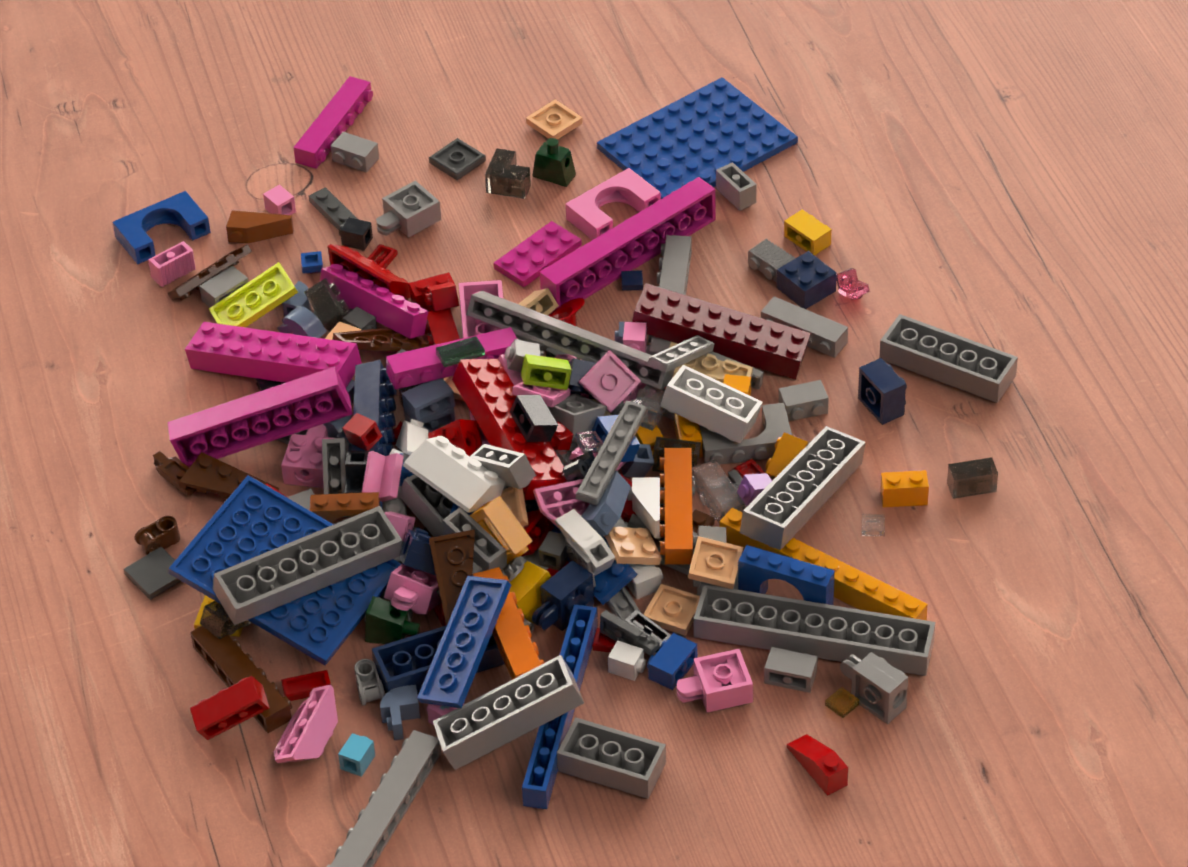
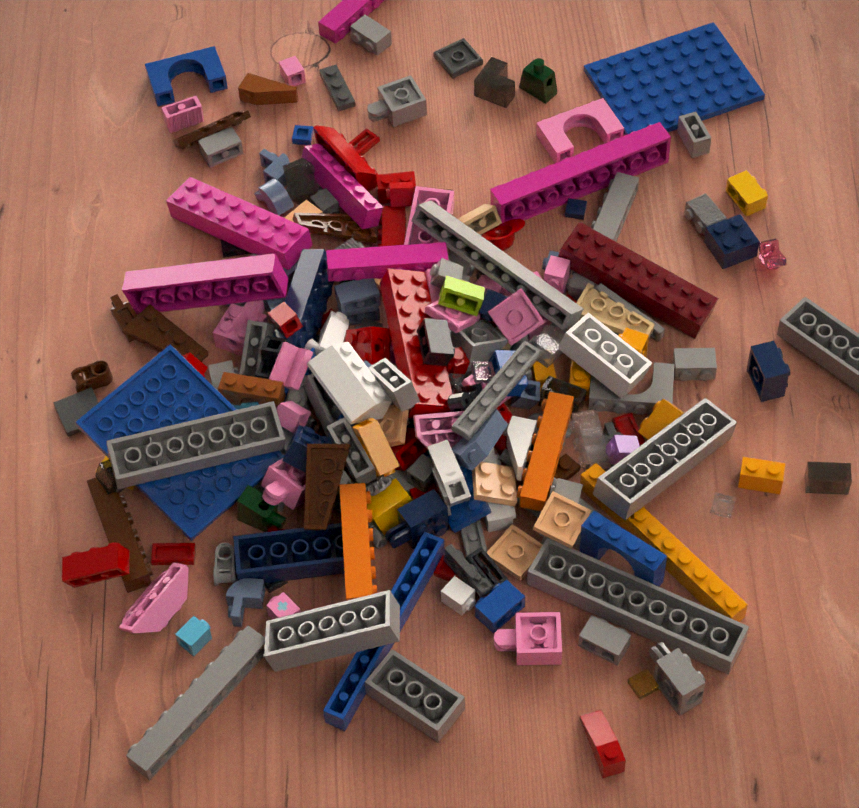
camera: 15 degrees right, 10 degrees up
(255, 298) = (240, 163): neon yellow plate -> none
(356, 233) = (348, 115): black brick -> none
(464, 349) = (392, 258): clear green tile -> none
(464, 642) = (312, 552): blue plate -> none
(536, 253) = (500, 165): dark pink plate -> none
(554, 120) = (552, 37): light nougat plate -> none
(681, 353) = (590, 299): light grey tile -> none
(825, 334) = (732, 300): light grey brick -> none

